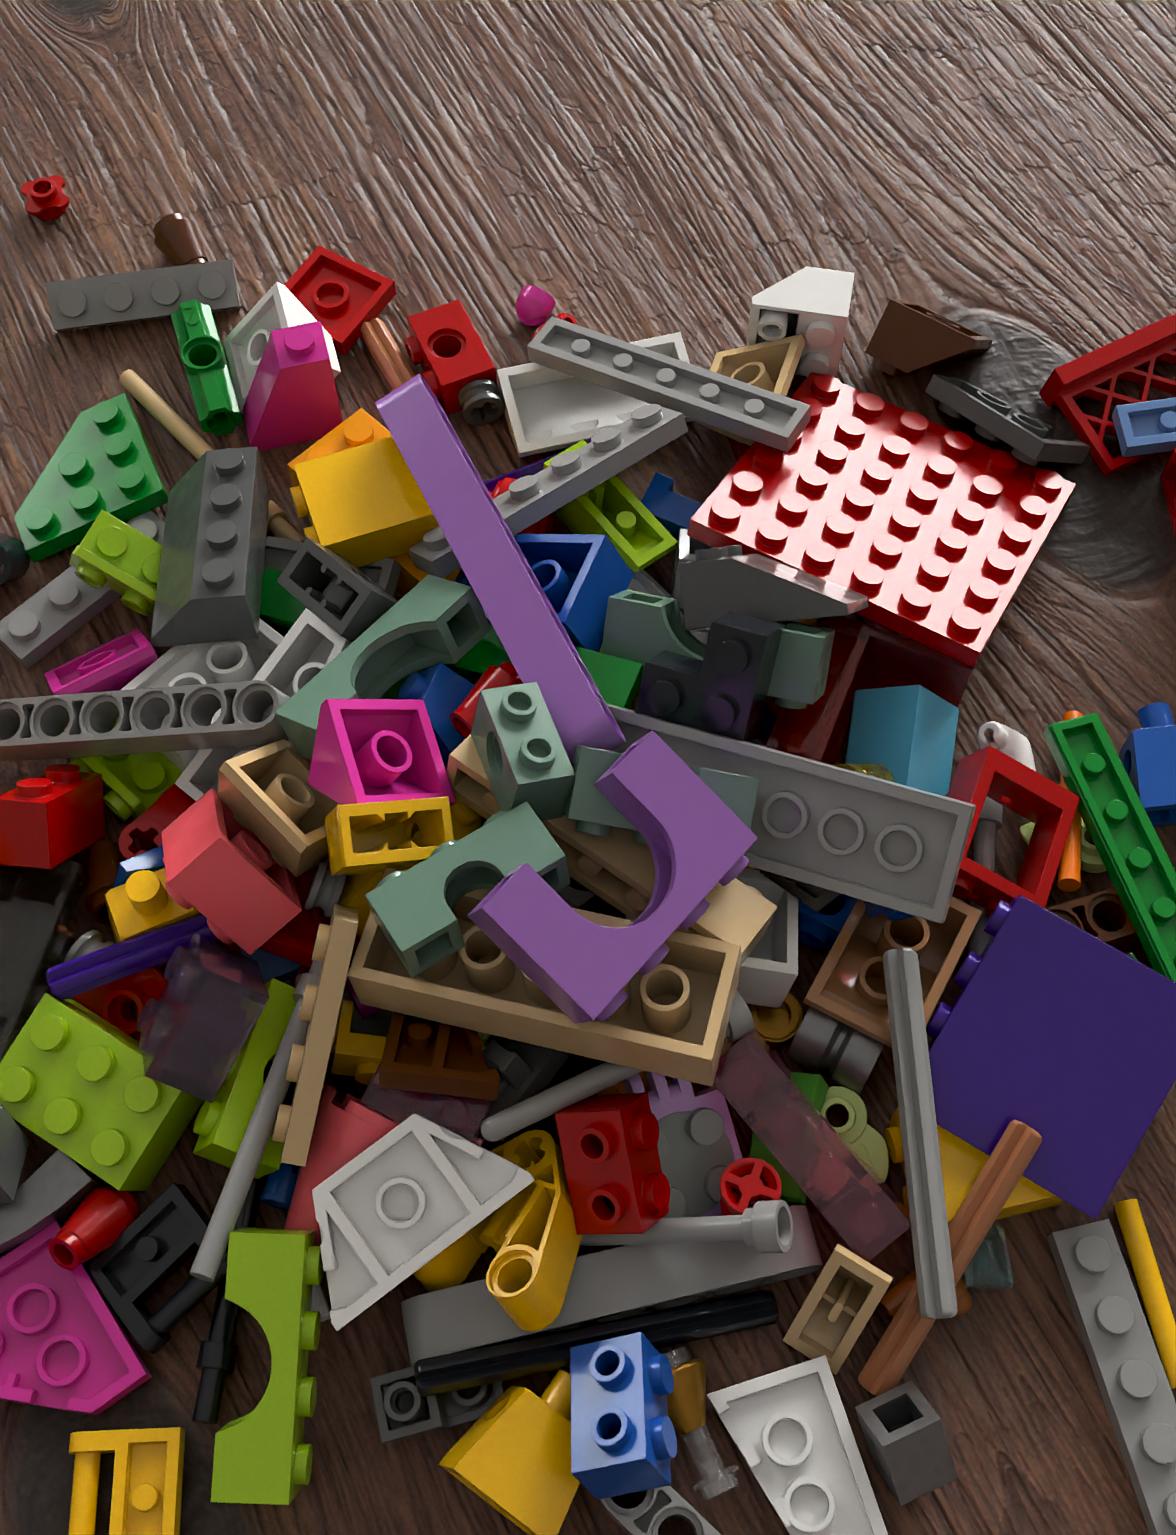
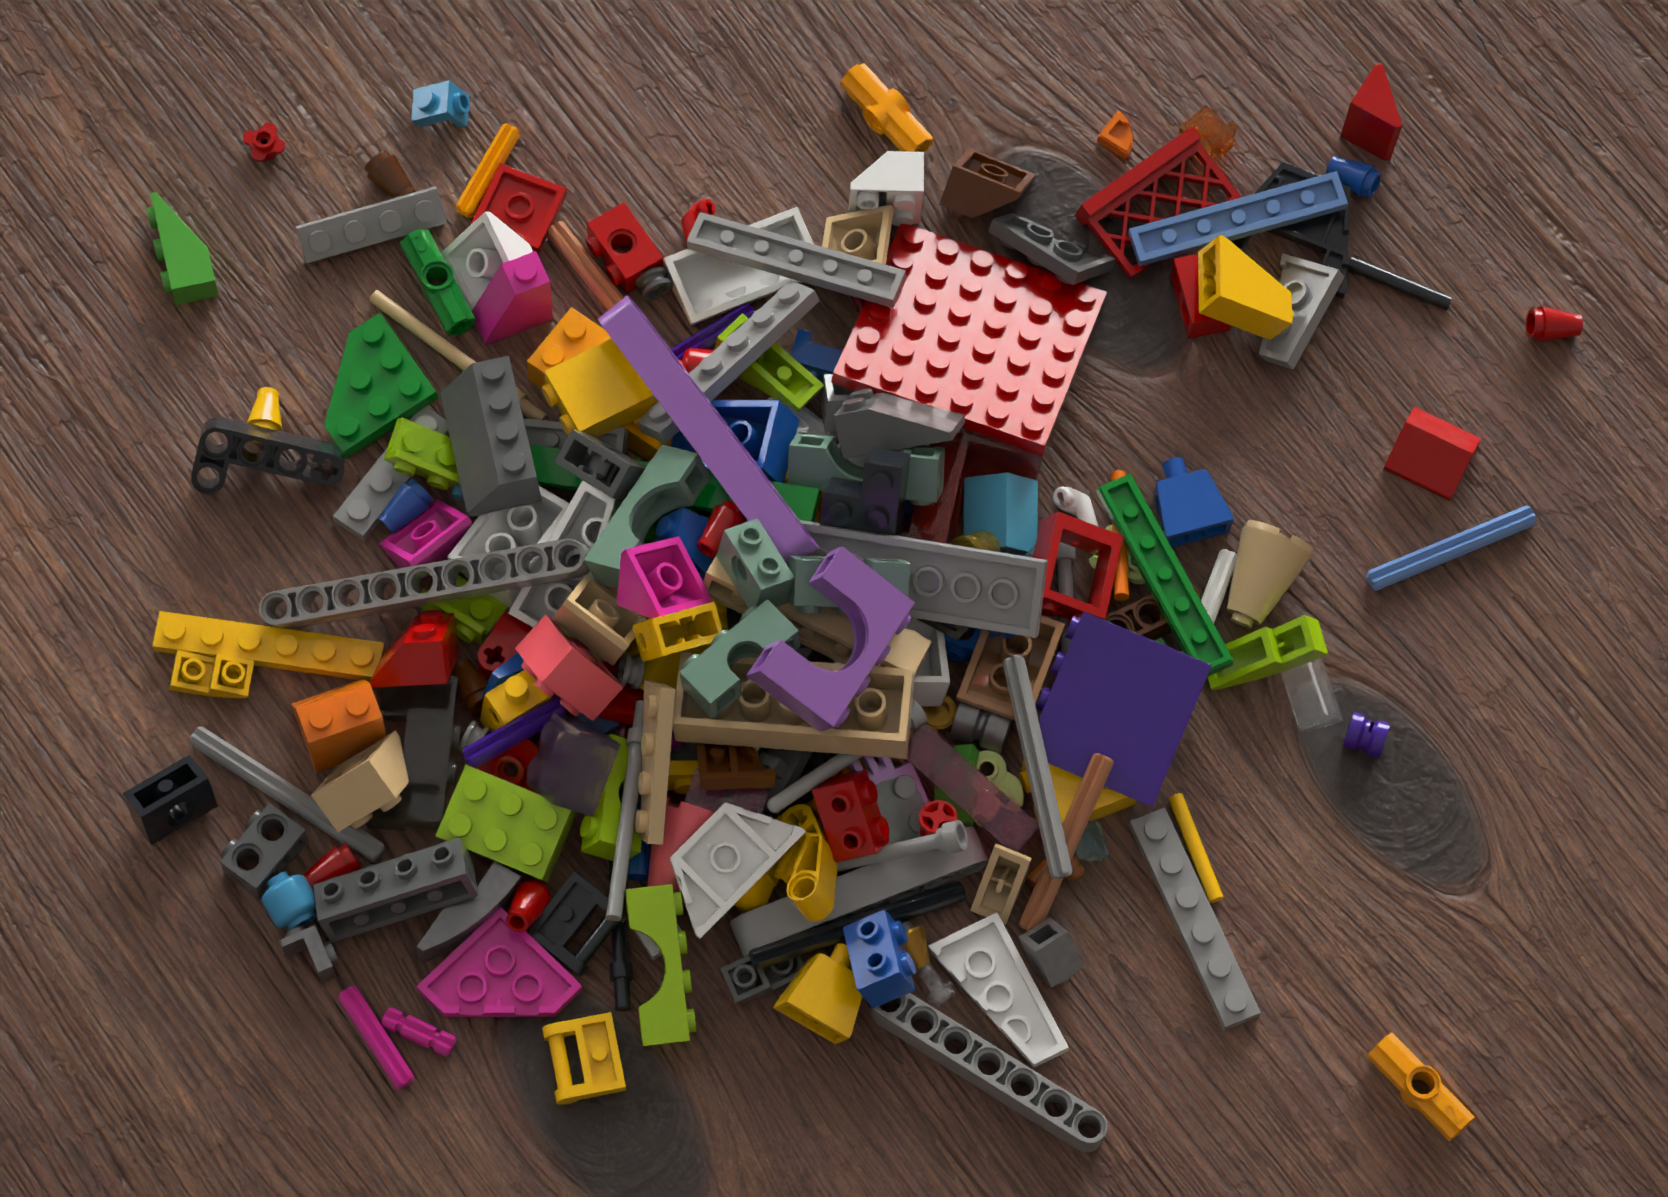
camera: 15 degrees left, 5 degrees up
(88, 628) = (405, 505): none -> blue cone
(267, 175) = (440, 103): none -> dark azure bracket
(326, 234) = (481, 179): none -> light orange axle
(534, 305) = (678, 193): dark pink hinge -> none
(805, 238) = (885, 110): none -> light orange piece
(1103, 309) = (1117, 136): none -> orange tile

